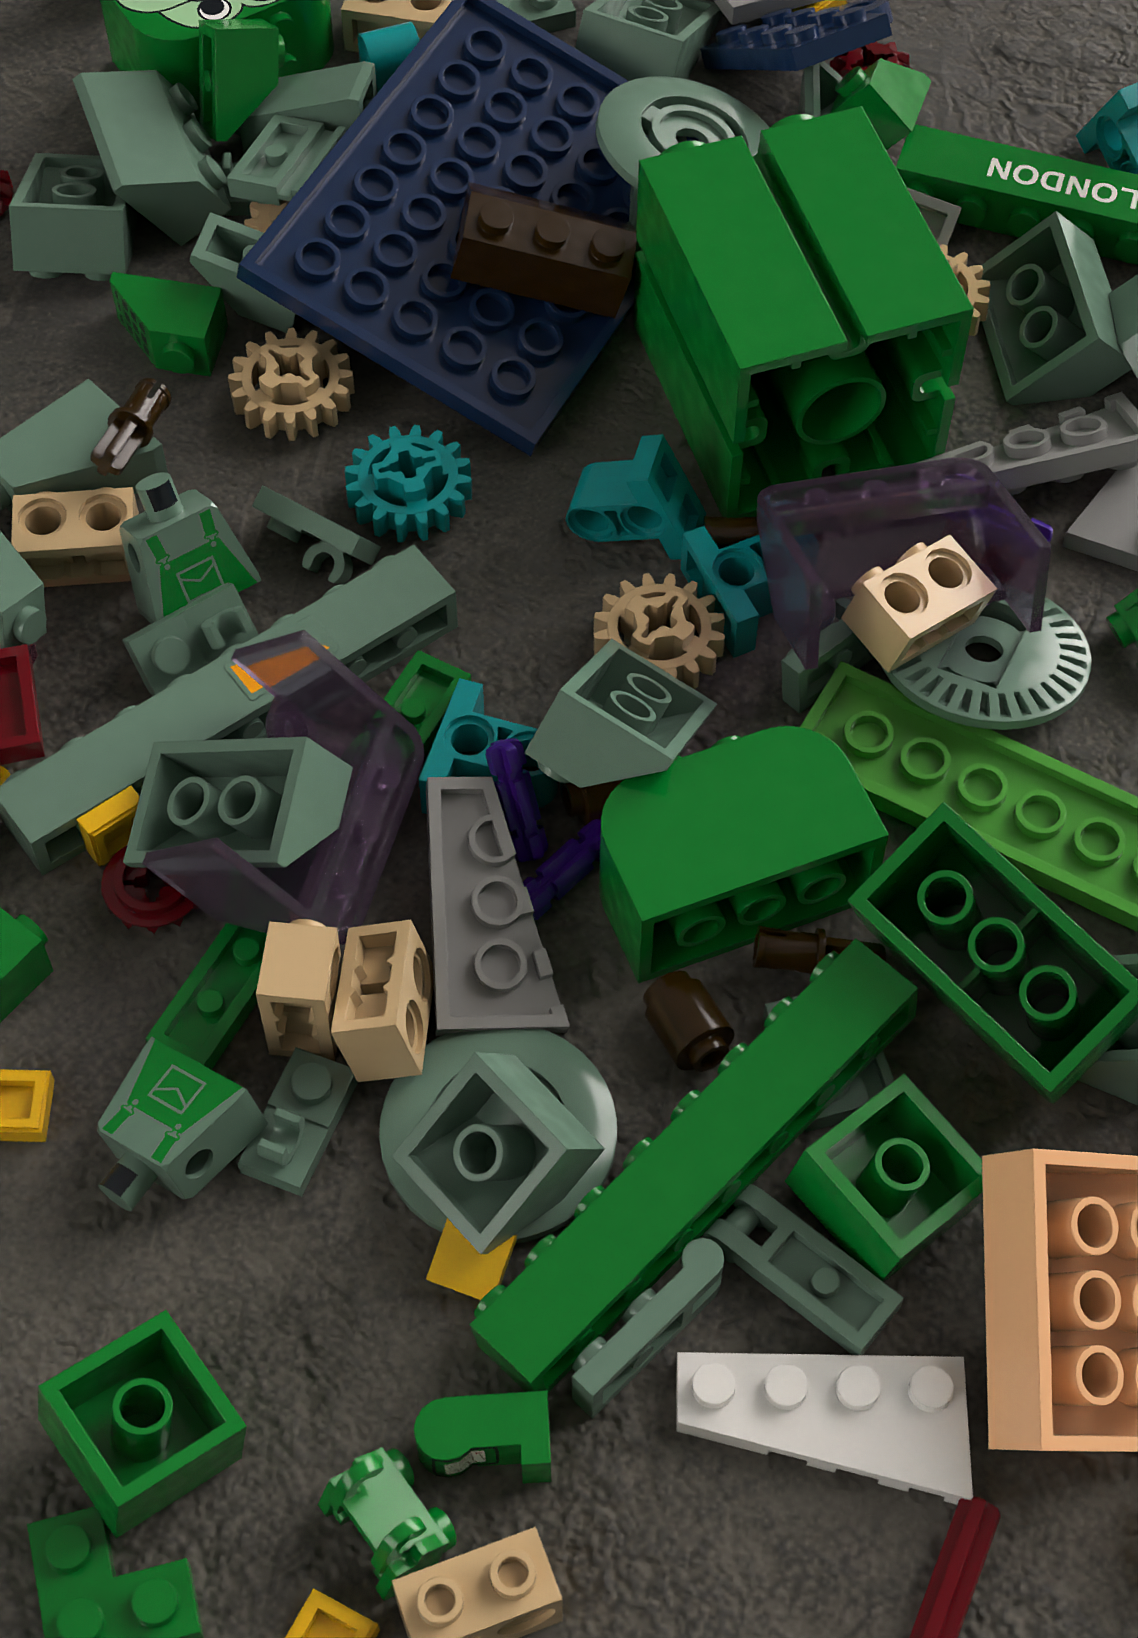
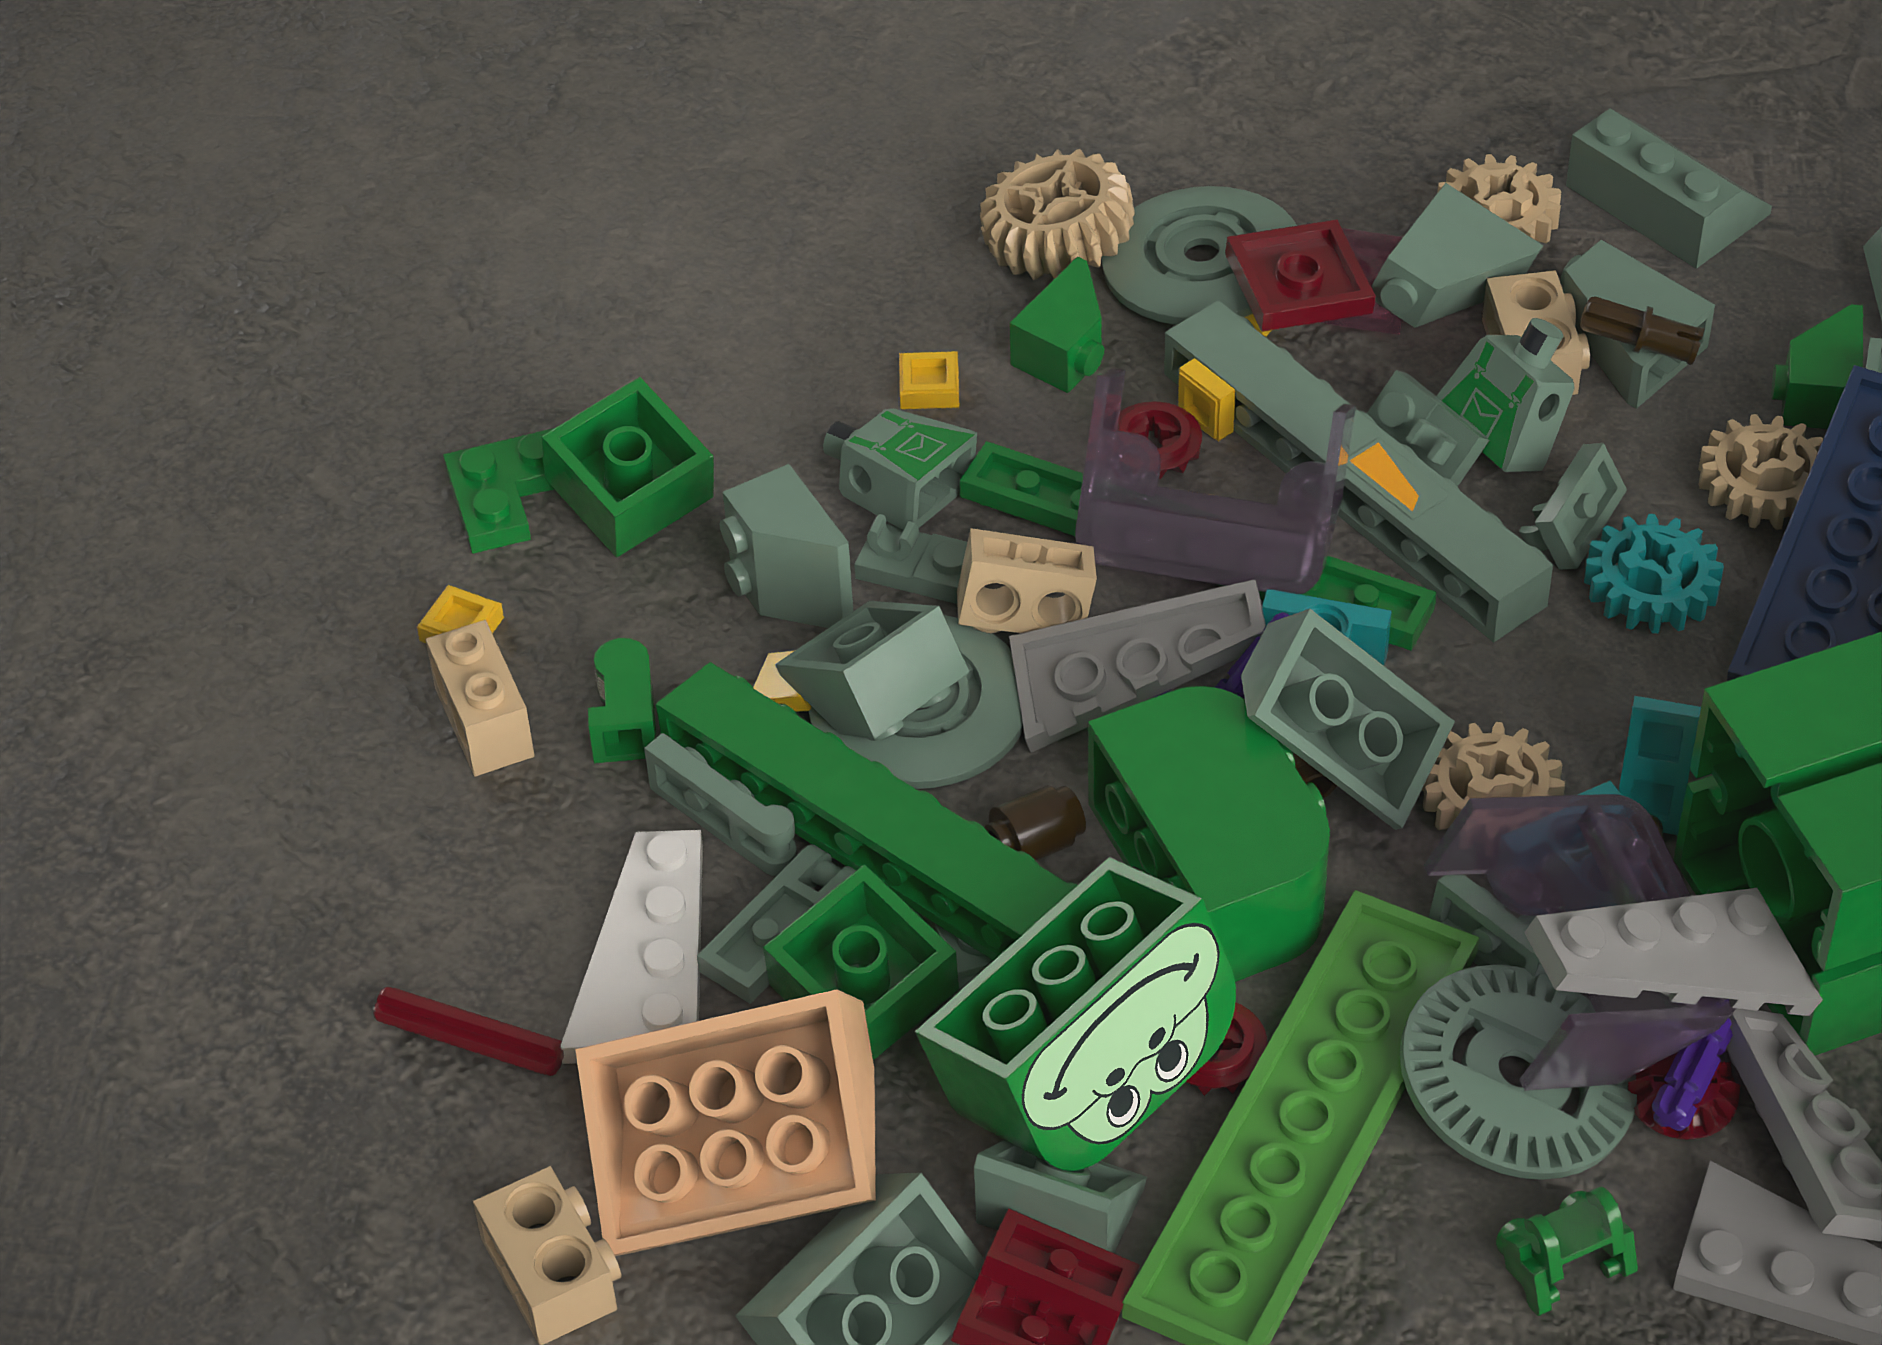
camera: 90 degrees right, 10 degrees down
(253, 794) = (1200, 445): sand green slope -> none
(299, 987) = (1031, 500): tan brick -> none
(310, 1236) = (786, 551): none -> sand green slope
(389, 1516) = (553, 636): green piece -> none
(917, 601) = (1515, 974): tan brick -> none
(942, 478) = (1677, 947): none -> light grey wing

